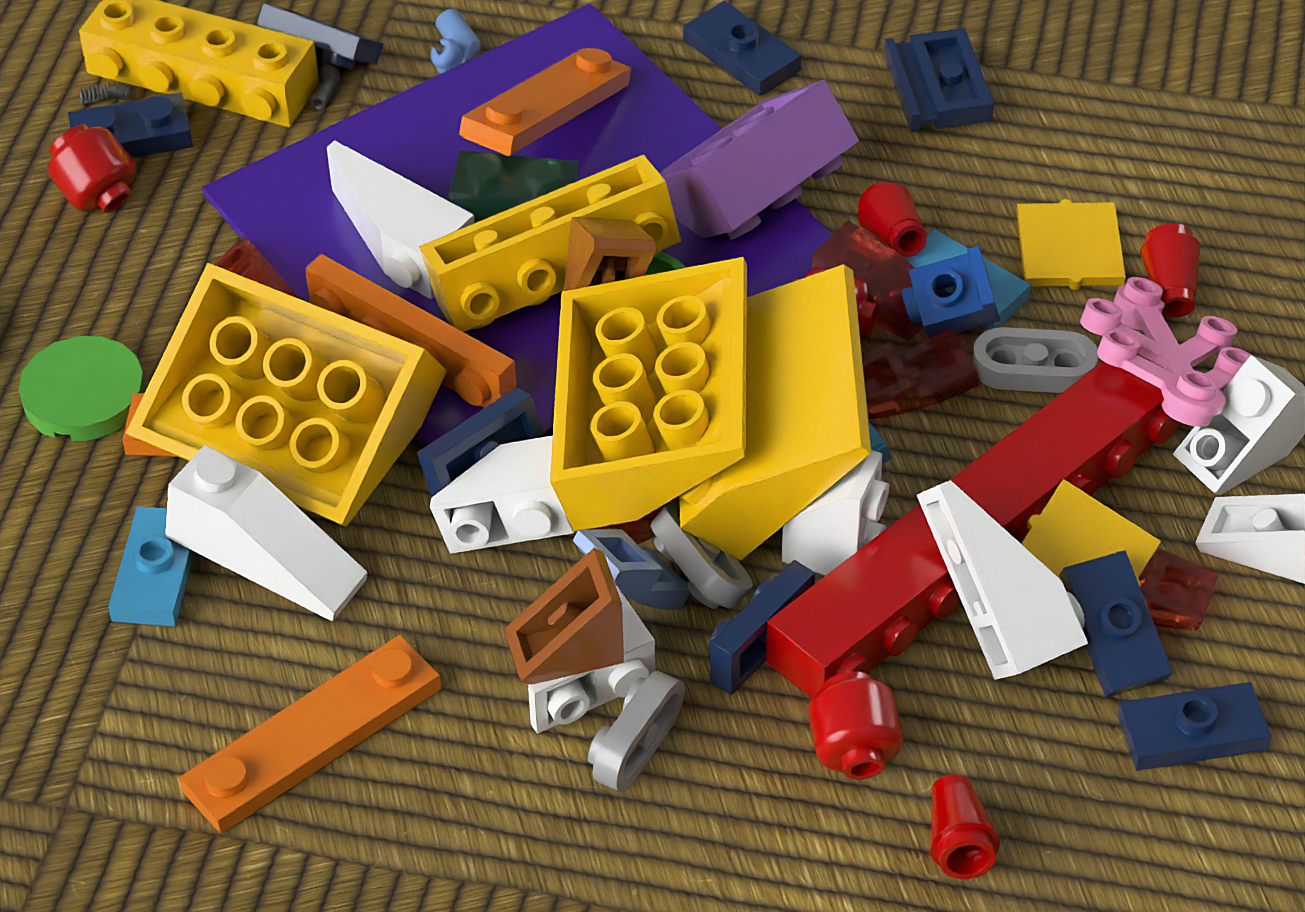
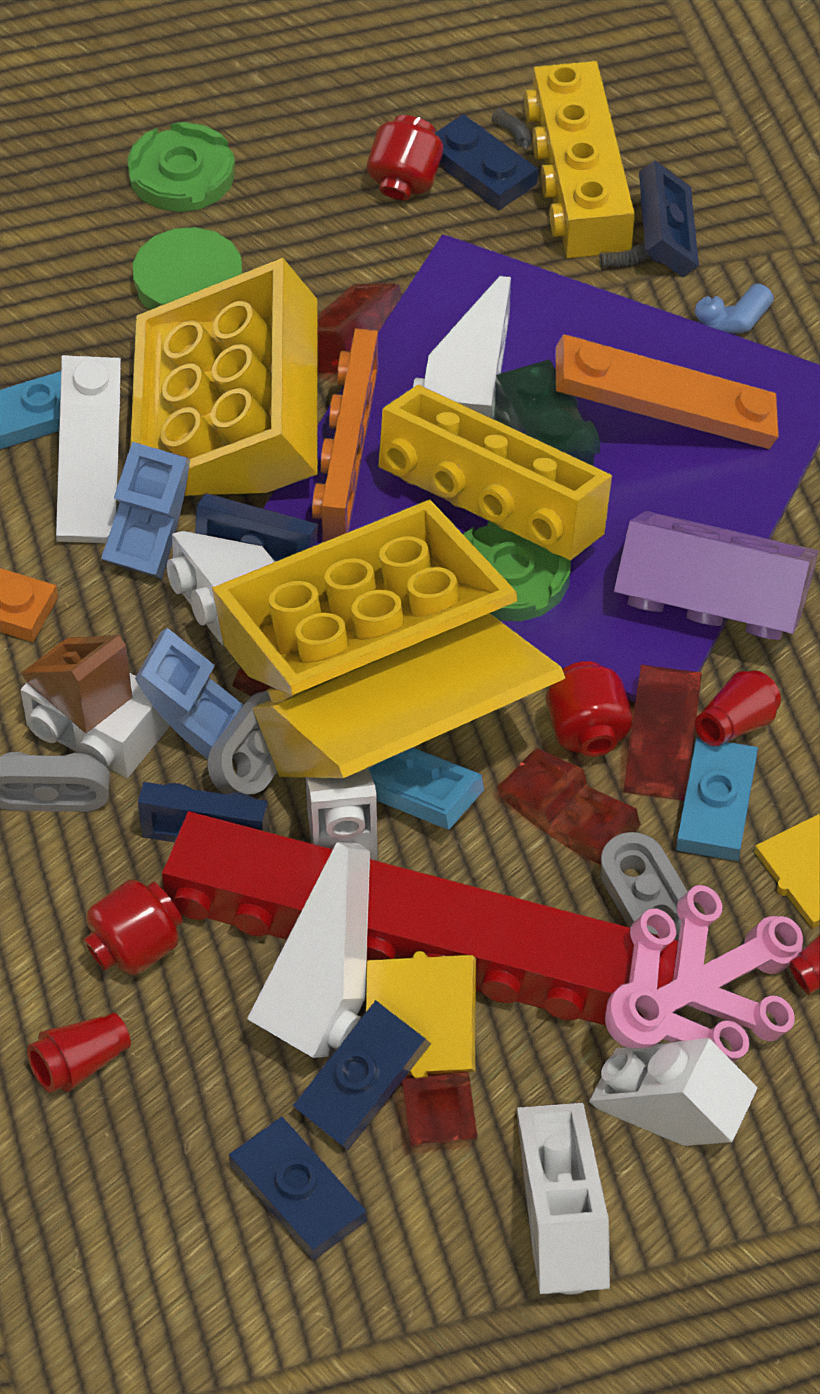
camera: 60 degrees right, 5 degrees up
(377, 518) = (148, 510): none -> medium blue slope
(606, 252) = (480, 502): dark orange slope -> none
(966, 309) = (654, 779): blue brick -> none

